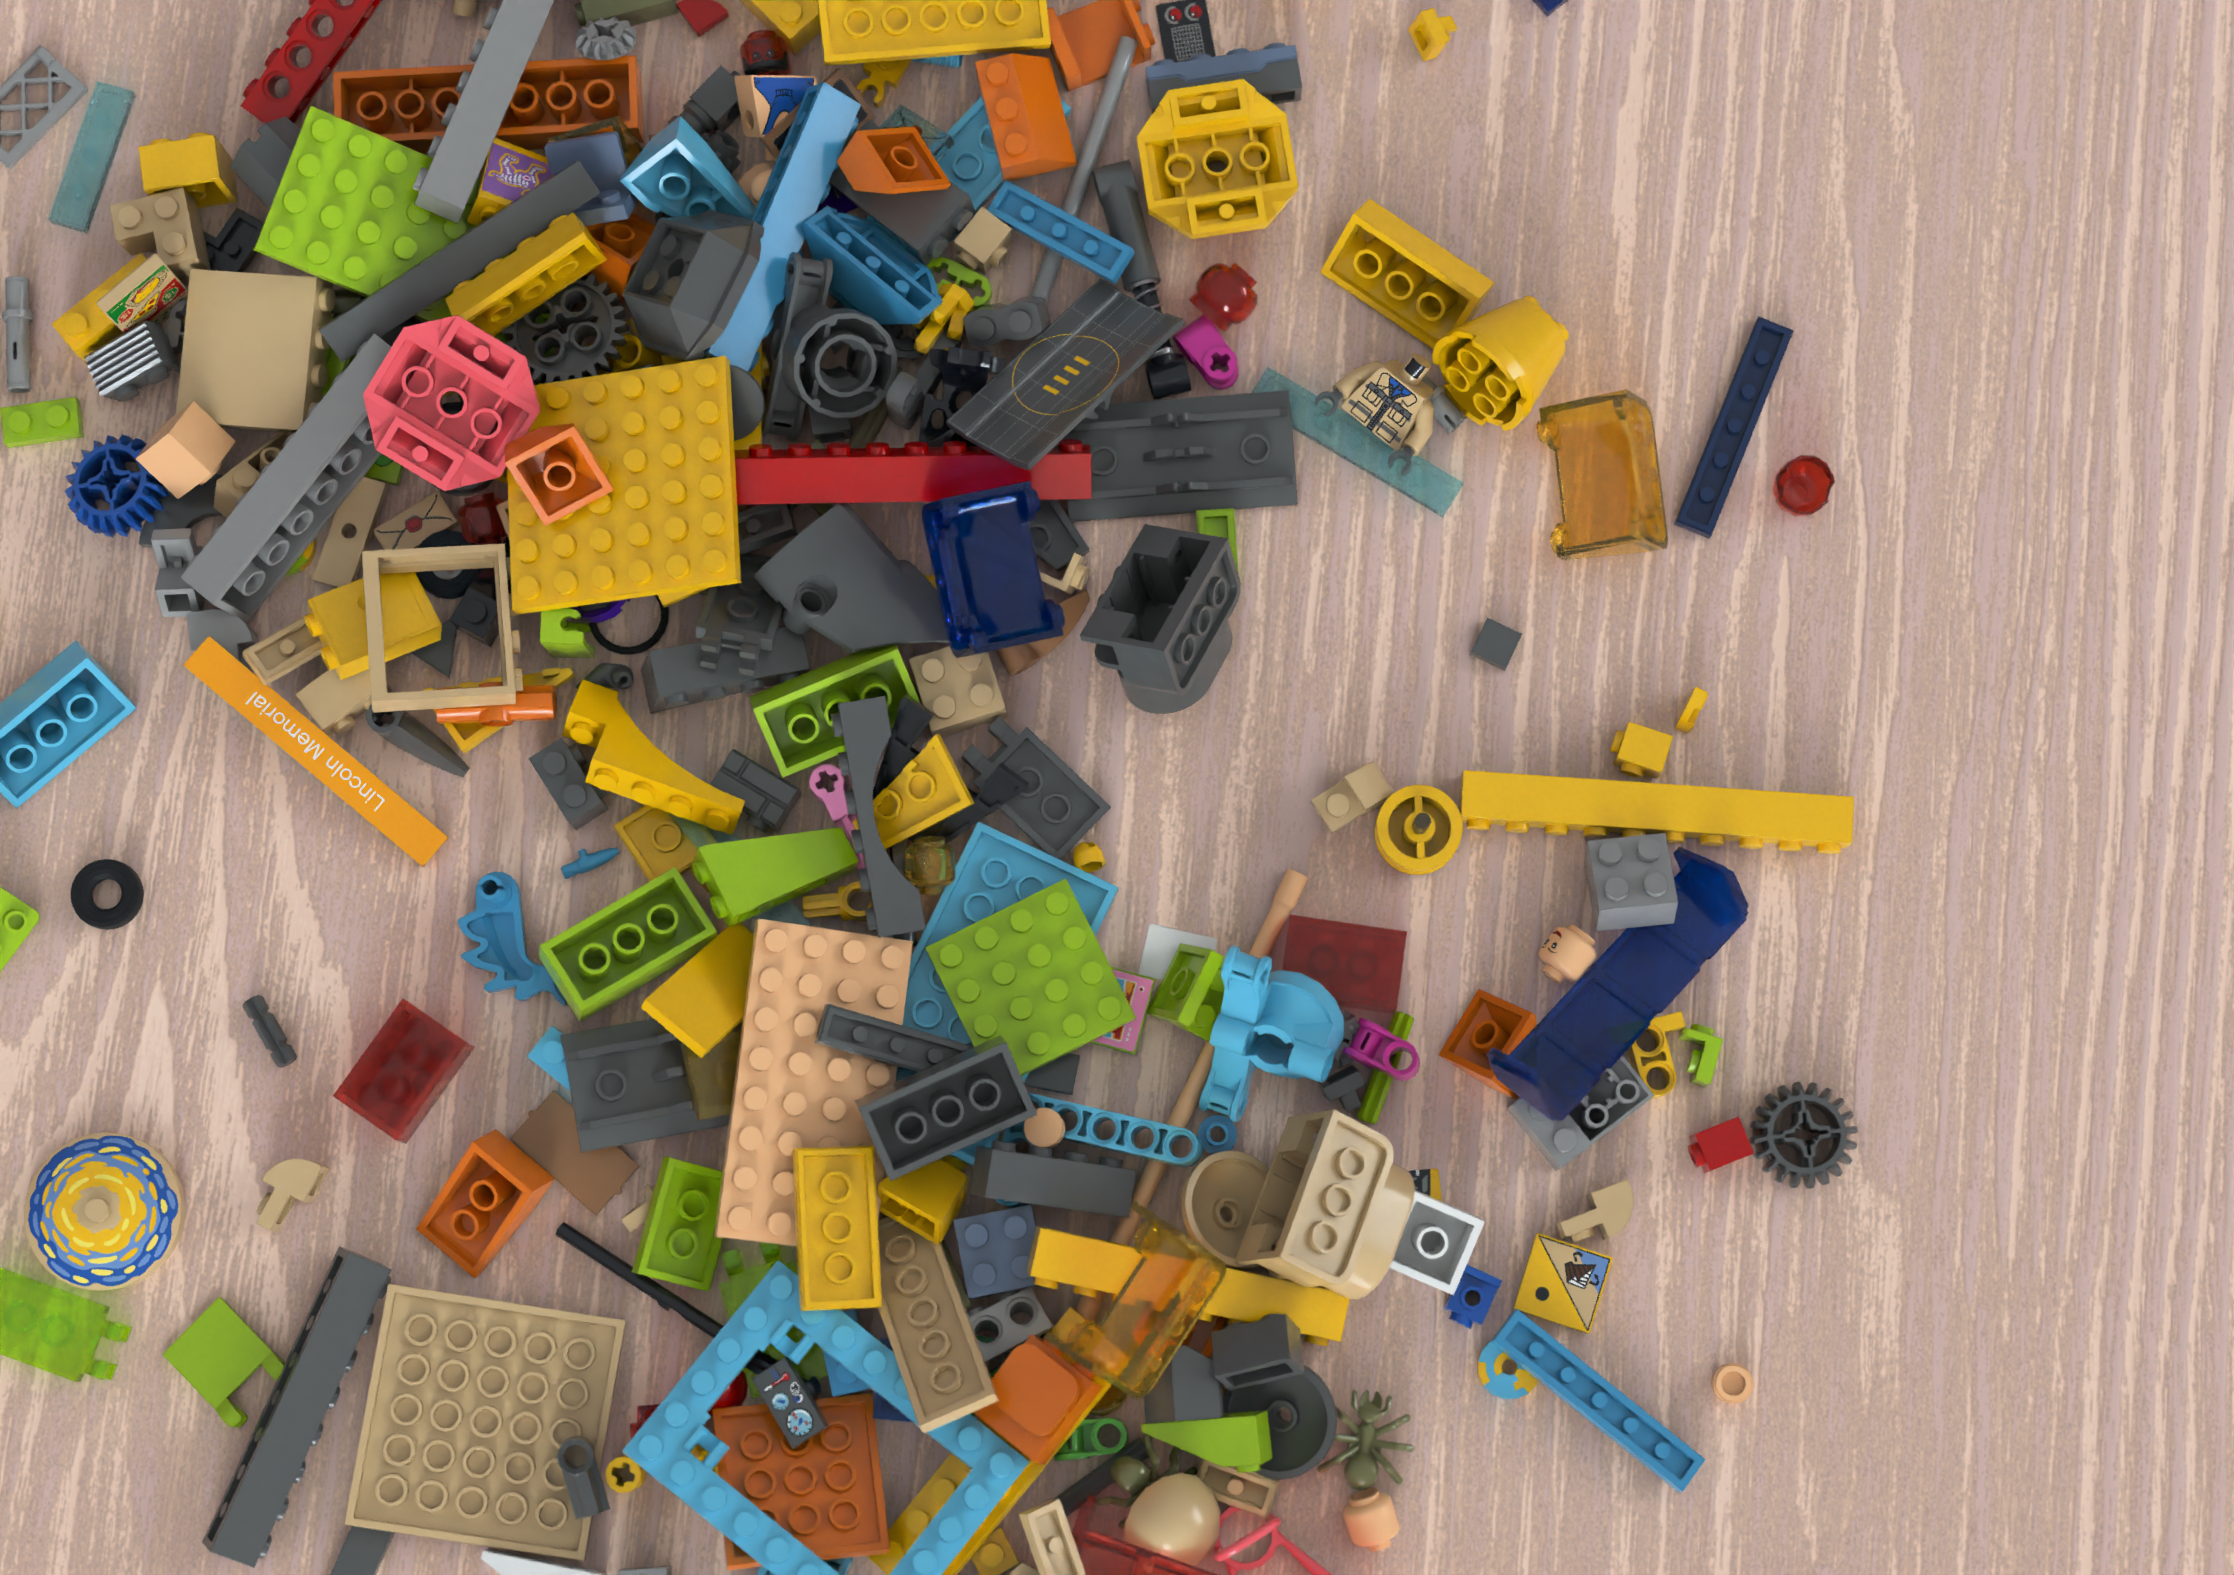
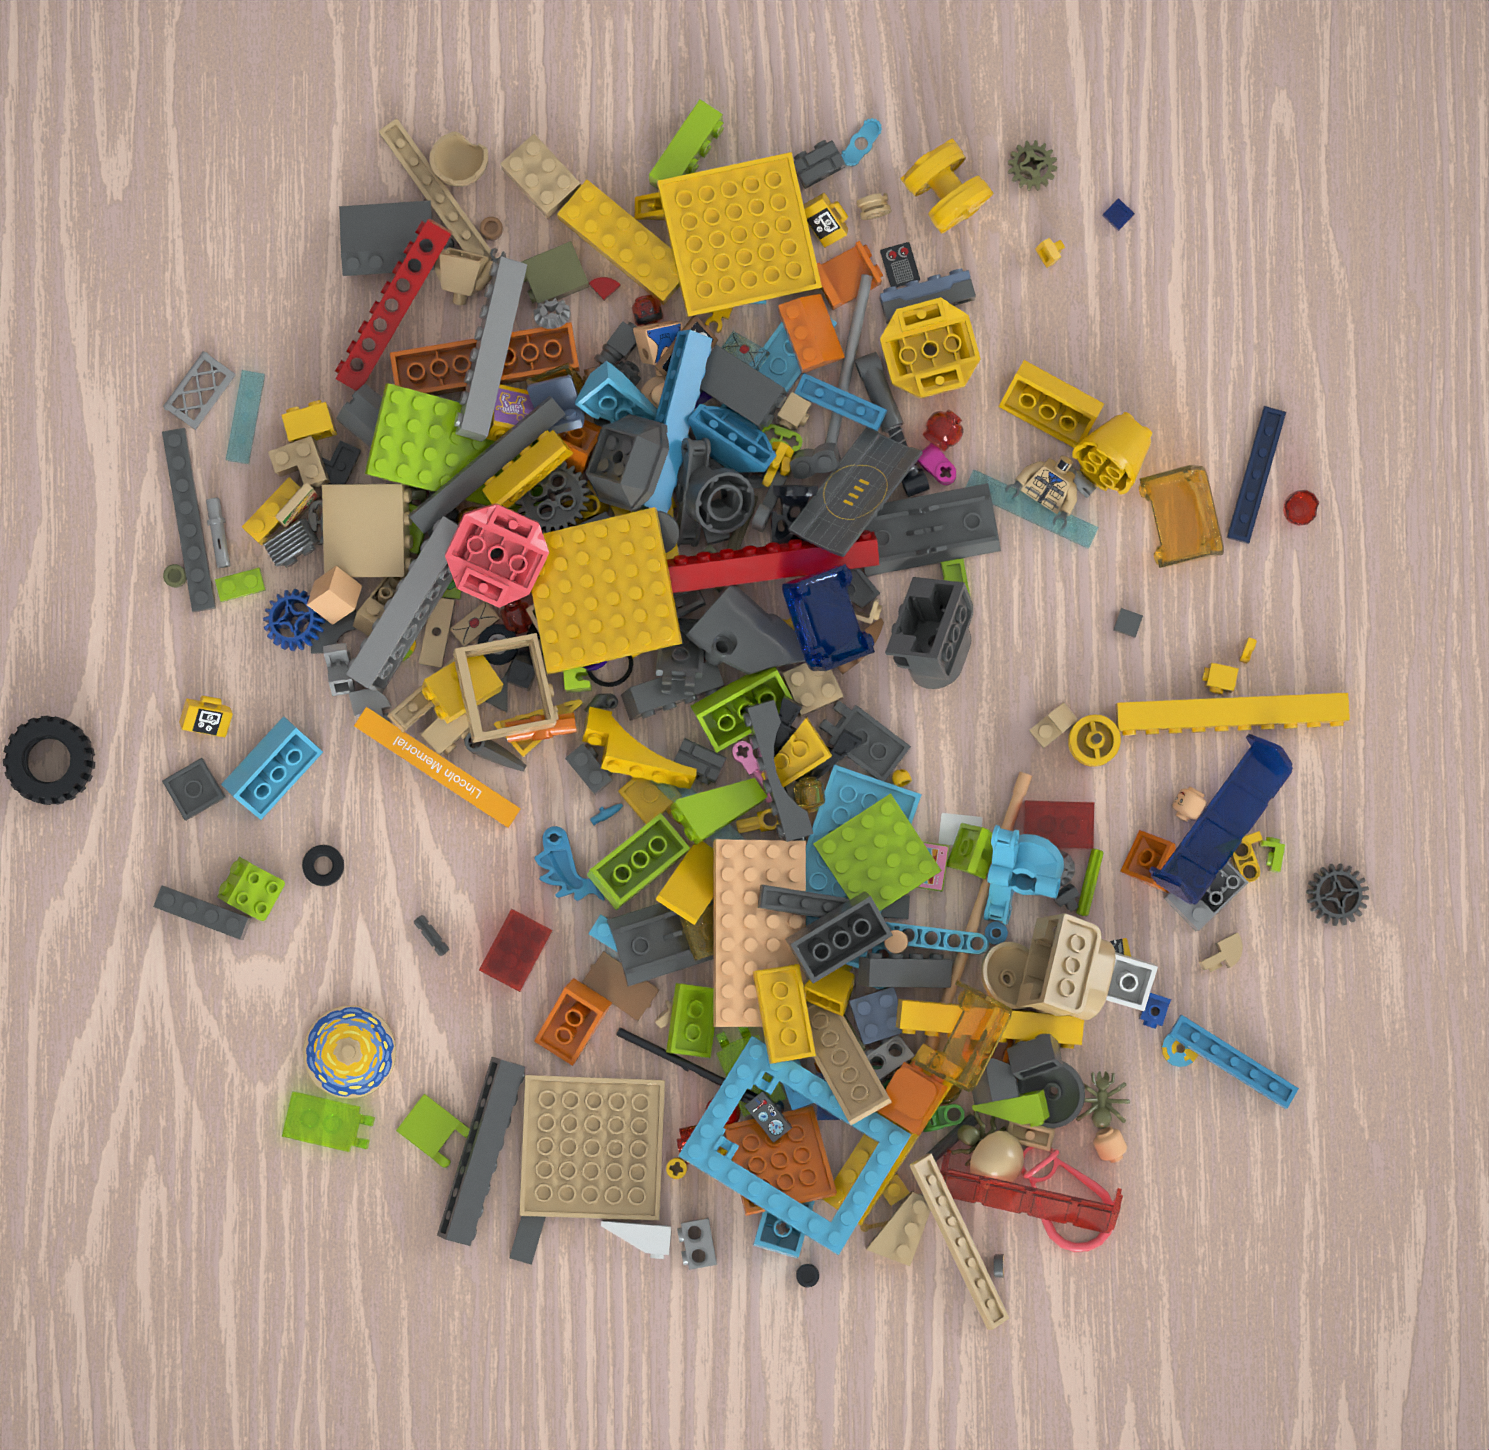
camera: 10 degrees left, 5 degrees up
(292, 1181) = (459, 1021): tan brick -> none
(556, 471) = (564, 588): orange slope -> none
(583, 1481) = (654, 1174): dark grey piece -> none
(891, 162) = (736, 374): orange slope -> none
(1380, 1049) = (1086, 873): dark pink piece -> none
(1562, 1283) = (1206, 996): tile -> none
(1630, 882) = (1222, 757): light grey brick -> none
(1719, 1145) = (1289, 906): red brick -> none
(1732, 1383) = (1310, 1042): light nougat tile -> none

